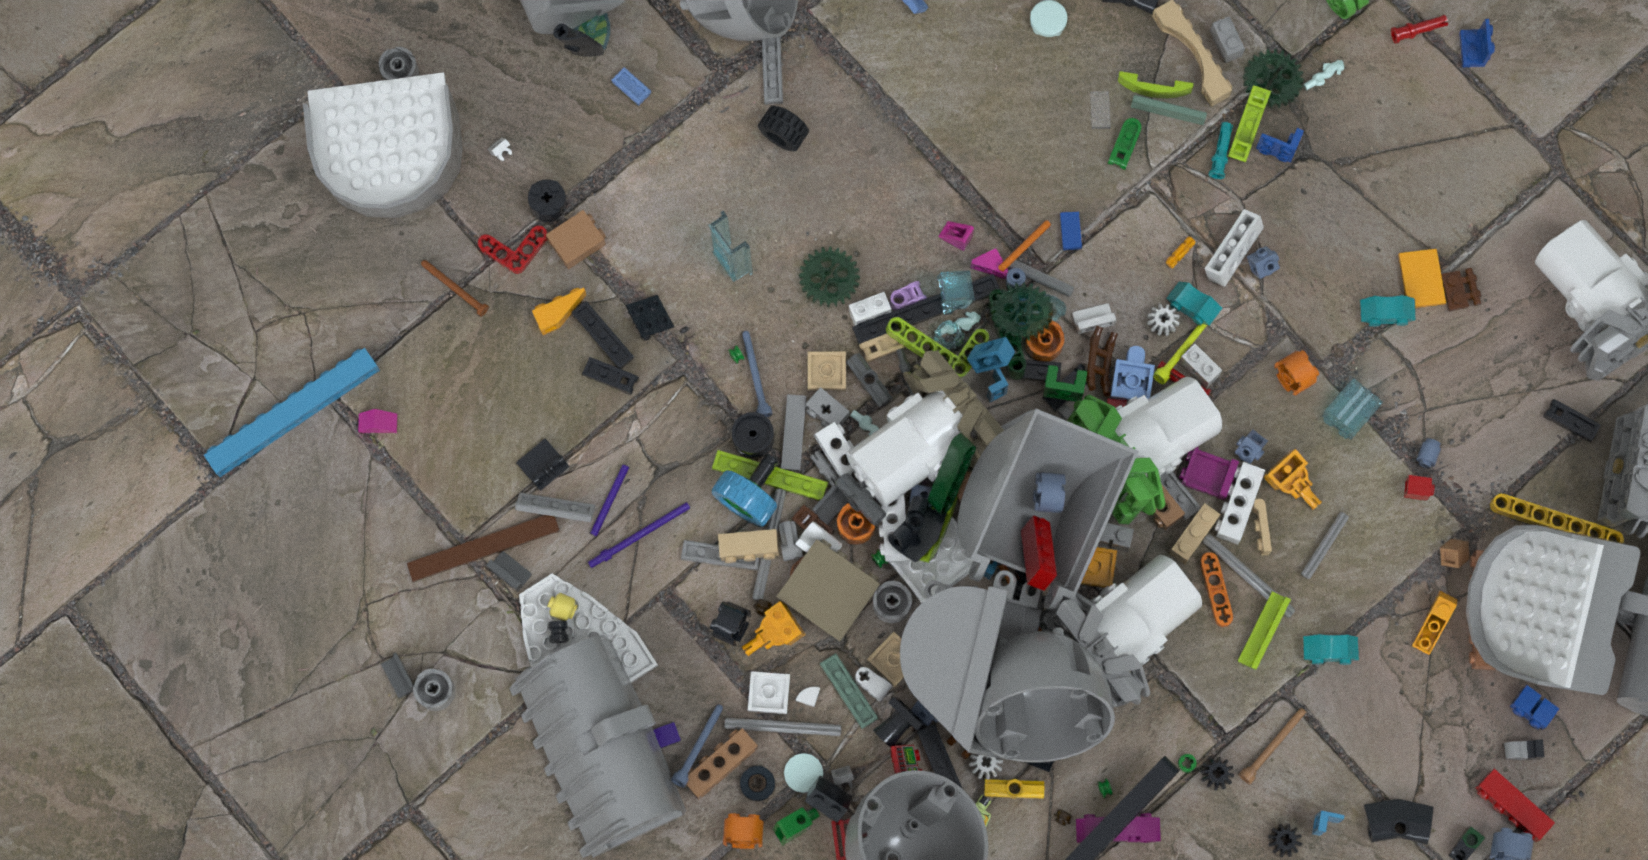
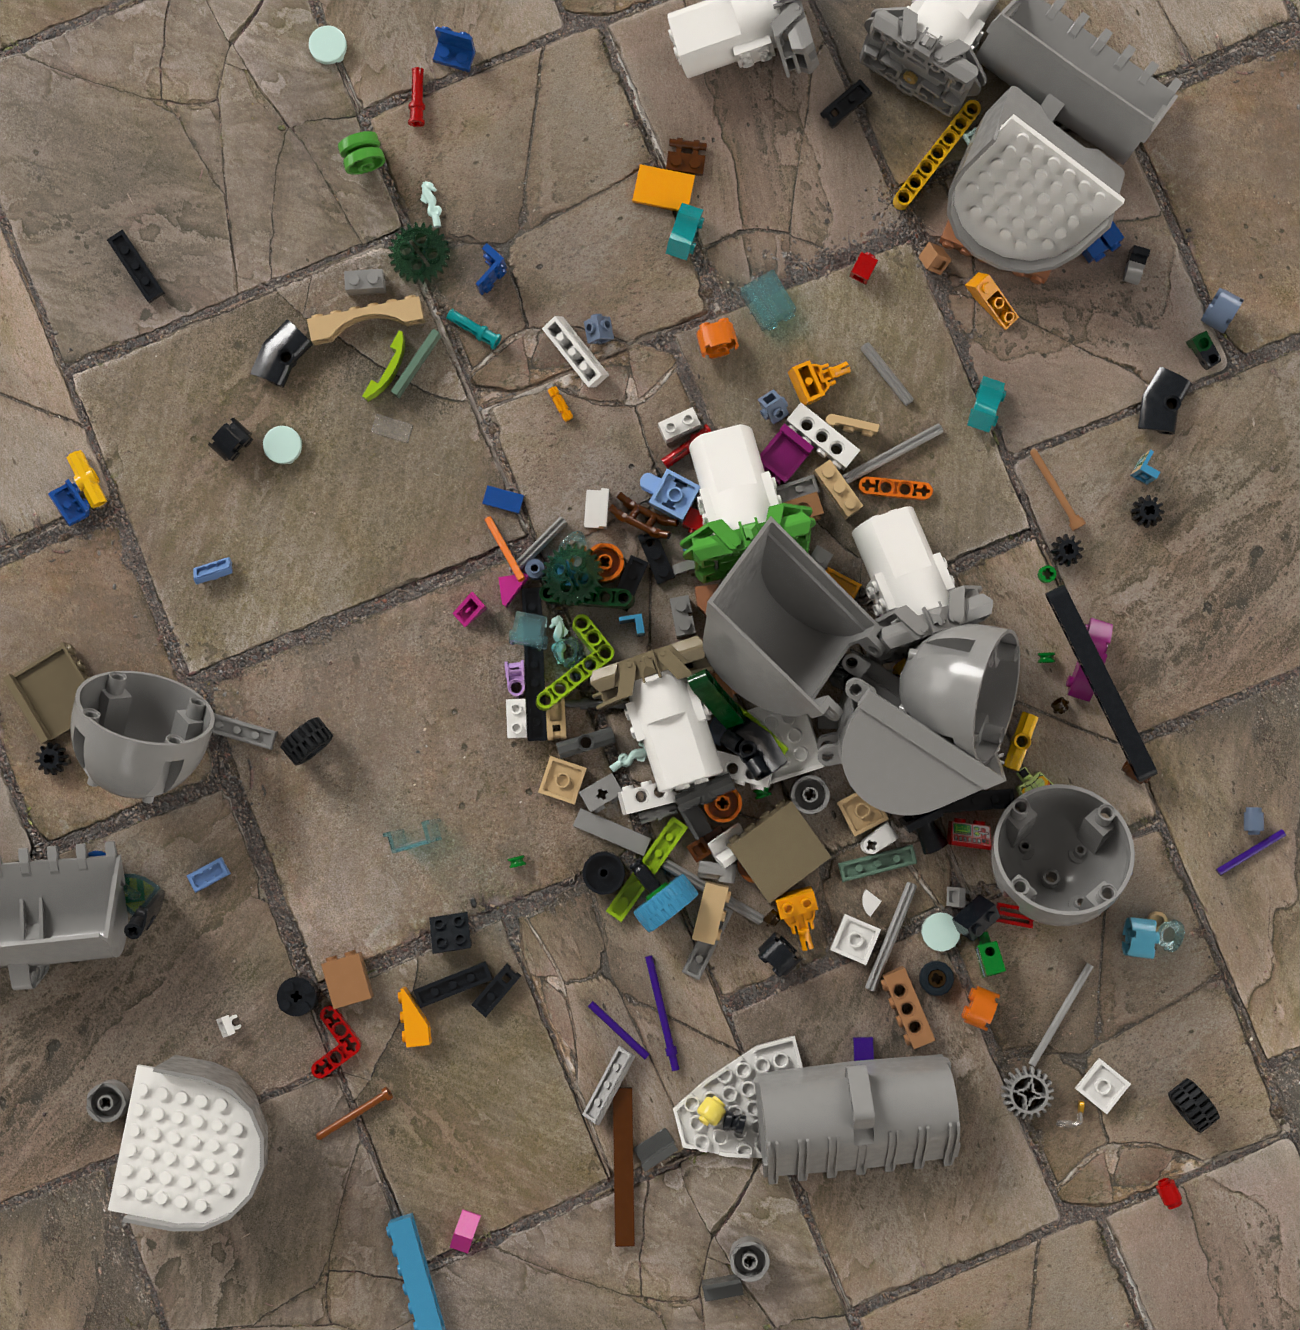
camera: 70 degrees left, 10 degrees up
(542, 464) = (561, 1083): black hinge -> none
(681, 777) = (912, 1050): sand blue piece -> none
(763, 407) = (578, 853): sand blue piece -> none
(815, 269) = (456, 757): clear green gear -> none
(991, 355) = (607, 619): dark azure brick -> none
(1038, 553) = (822, 643): red brick -> none
(1049, 492) = (766, 613): sand blue brick -> none
(1062, 390) = (656, 573): green panel -> none
(1125, 142) = (434, 416): green plate -> none
(1162, 374) = (676, 464): neon yellow piece -> none
(1170, 322) = (614, 445): white gear -> none
(1193, 303) = (616, 409): teal brick -> none
(1249, 123) = (457, 293): lime slope -> none
(1264, 630) = (950, 458): lime fence -> none
(1429, 453) = (833, 245): sand blue brick -> none
(1514, 805) = (1182, 293): red brick -> none

